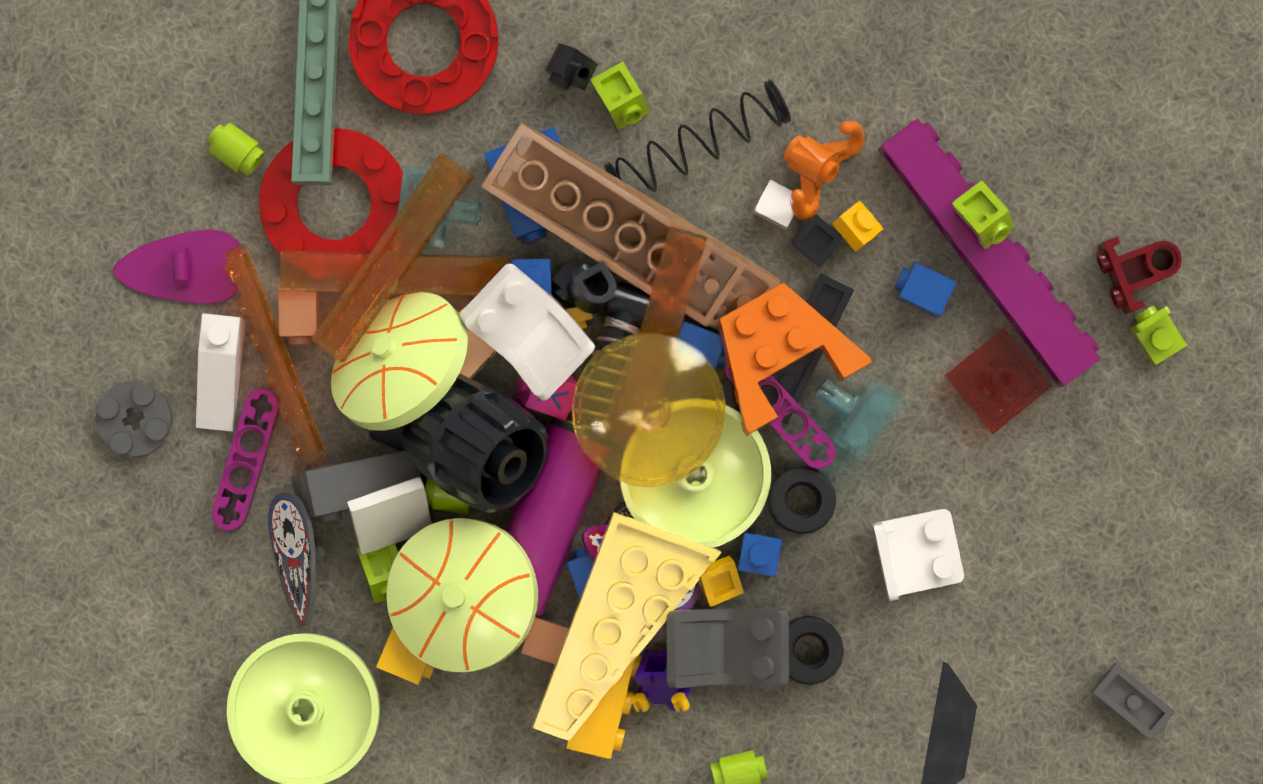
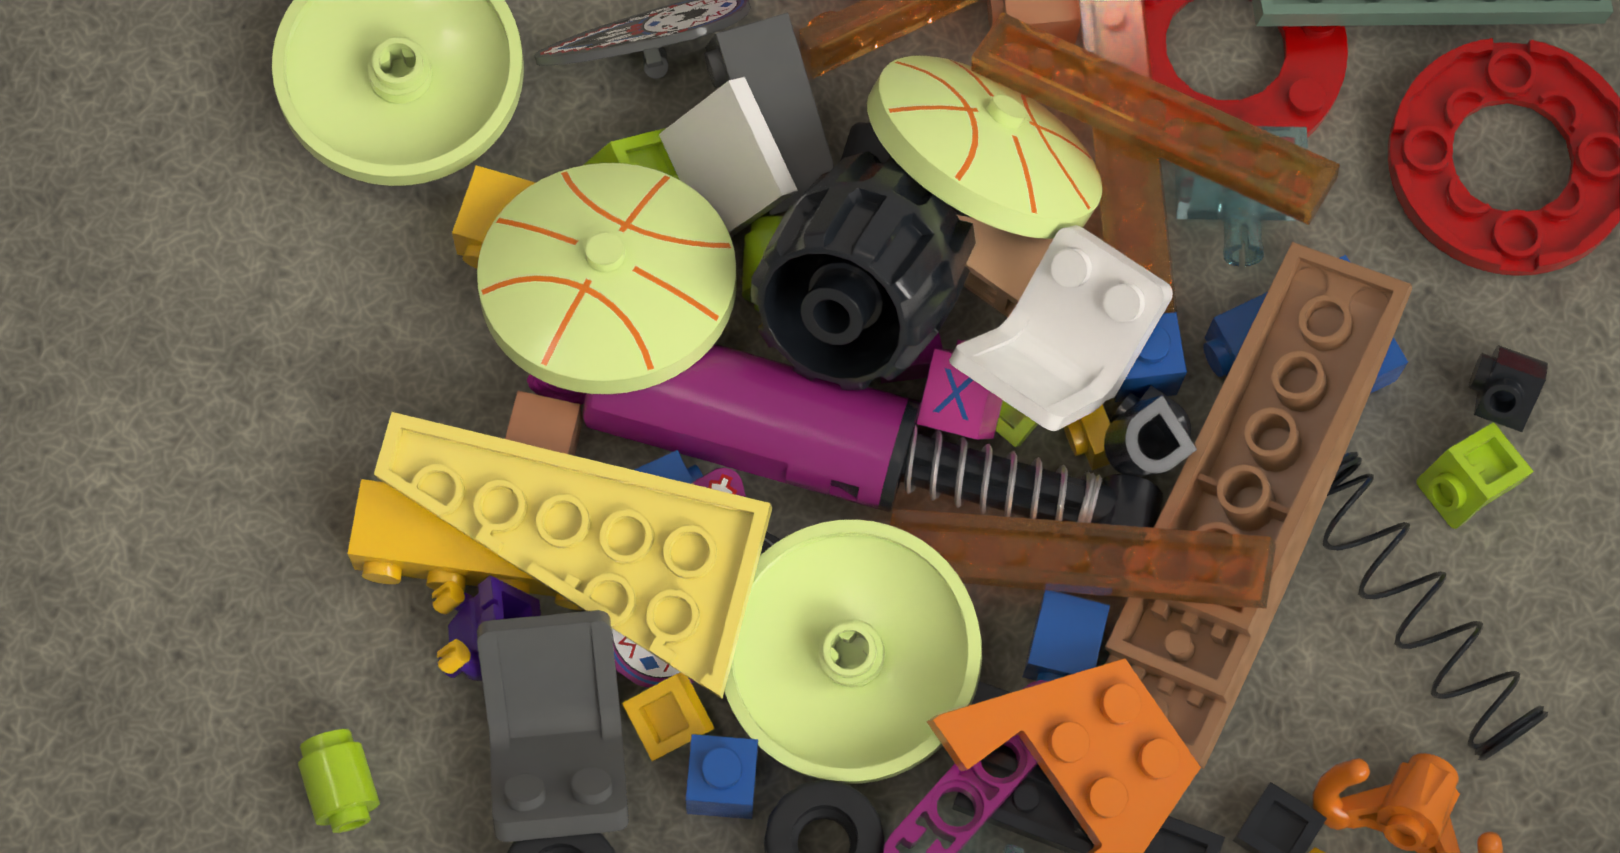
camera: 80 degrees right, 15 degrees down
(648, 409) = (953, 547): clear yellow dish -> none
(775, 205) = (1324, 746): white slope -> none

